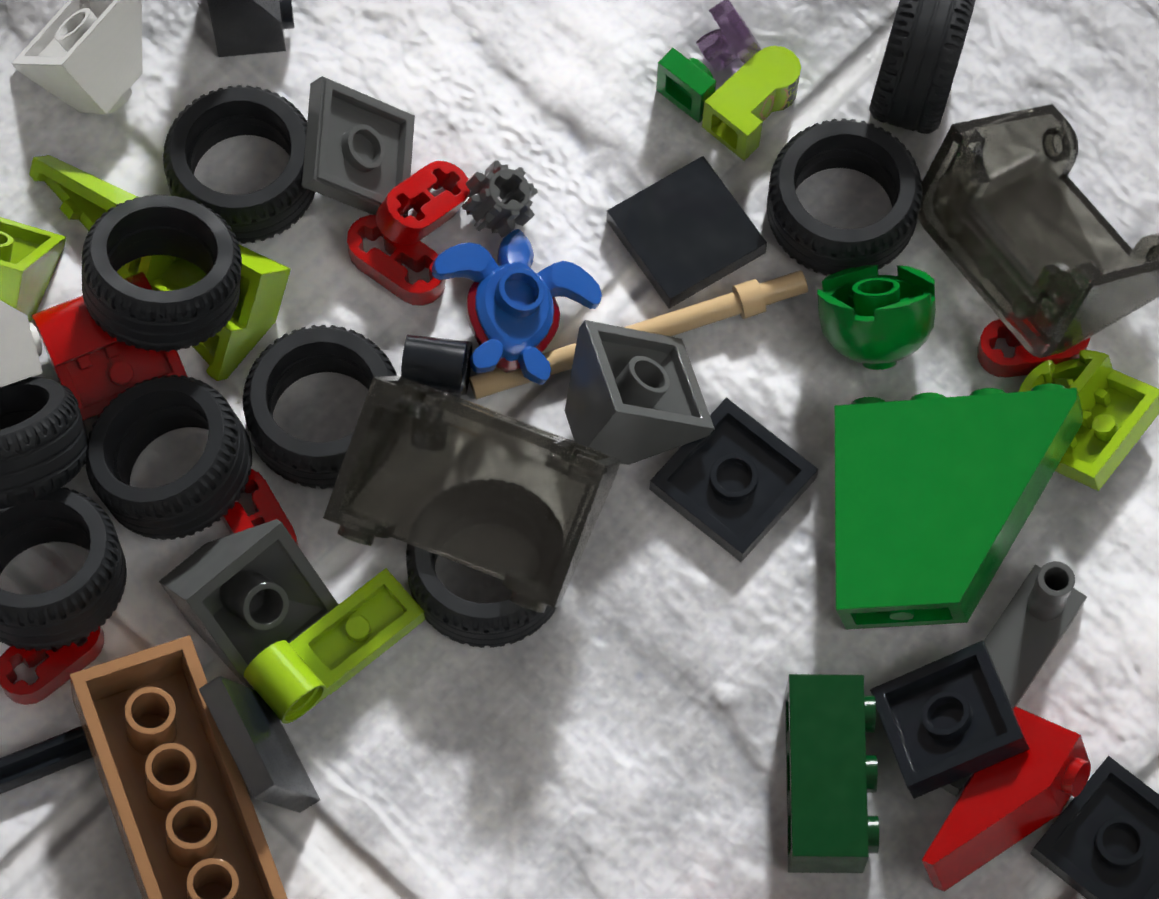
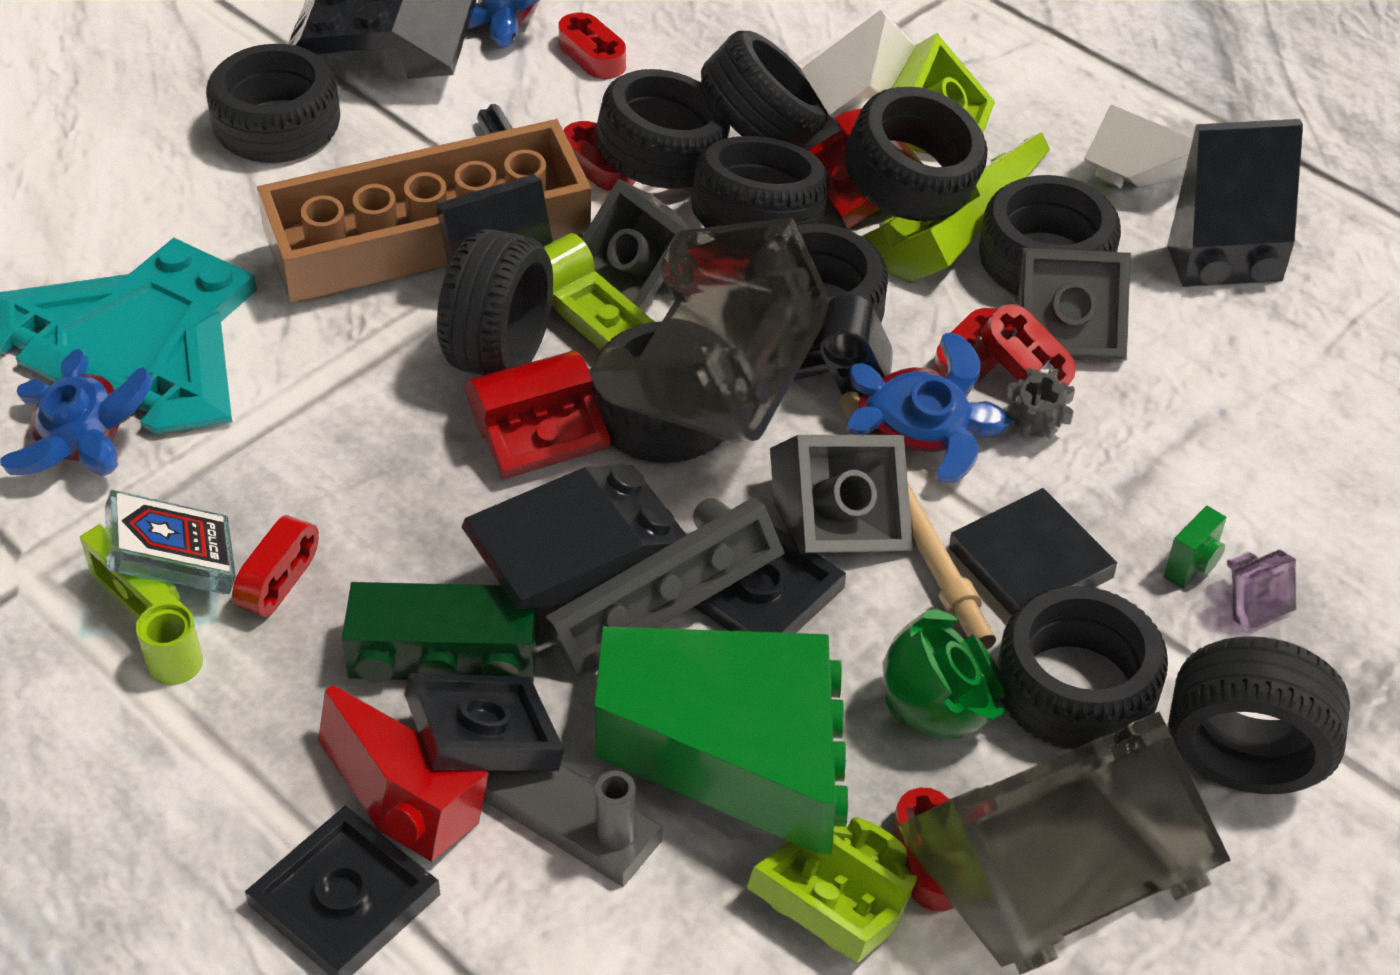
camera: 90 degrees right, 20 degrees down
(388, 732) = (494, 302): none -> black tyre
(514, 697) = (538, 413): none -> red brick
(725, 483) = (670, 581): none -> dark grey piece
(728, 635) = (571, 534): none -> black slope
(749, 96) = (1191, 599): lime leg -> none

